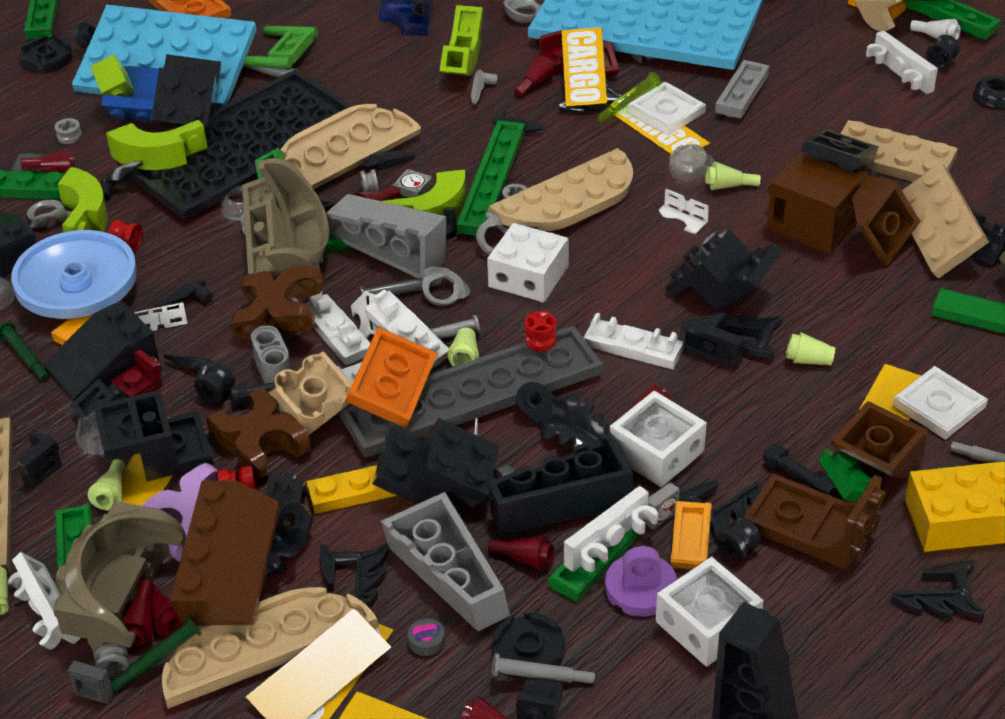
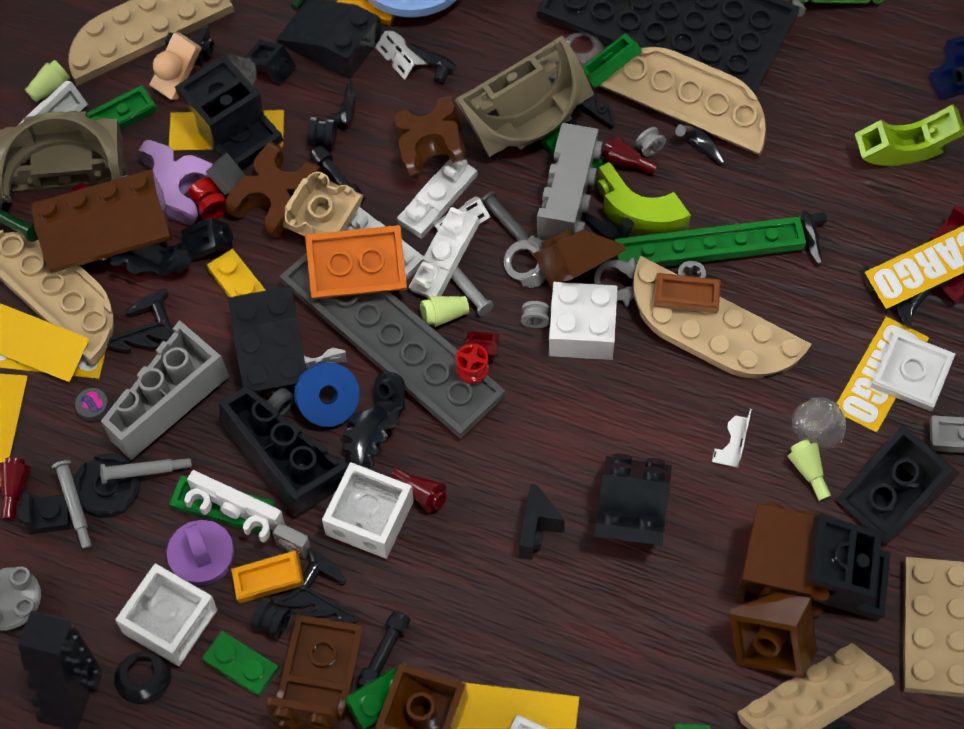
camera: 70 degrees right, 20 degrees up
(59, 468) = (174, 64): none -> light nougat tile
(108, 487) = (172, 110): yellowish green cone -> none
(139, 615) = (46, 189): dark red cone -> none
(141, 378) = (311, 74): dark red bracket -> none
(221, 458) = (225, 173): none -> dark grey tile
(269, 352) = (371, 160): light grey beam -> none
(413, 183) = (672, 179): tile -> none
(470, 239) = (571, 254): none -> reddish brown slope
(478, 83) = (873, 175): light grey bar -> none
(503, 291) = (535, 314): none -> light grey bush
(512, 332) = (489, 341): none -> dark red tile
(517, 440) = (345, 394): none -> blue tile
(525, 626) = (142, 468): none -> light grey piece
(533, 551) = (205, 454): dark red cone -> none
(538, 71) = (909, 225): dark red cone -> none
(542, 186) = (687, 293): none -> dark orange tile
(634, 342) = (514, 452): white plate -> none
(636, 92) = (908, 328): clear neon green piece -> none
(751, 326) = (583, 564): black piece -> none
(764, 131) = (897, 485): none -> black slope
(779, 577) = (240, 664): none -> green plate
(808, 350) = (557, 615): yellowish green cone -> none

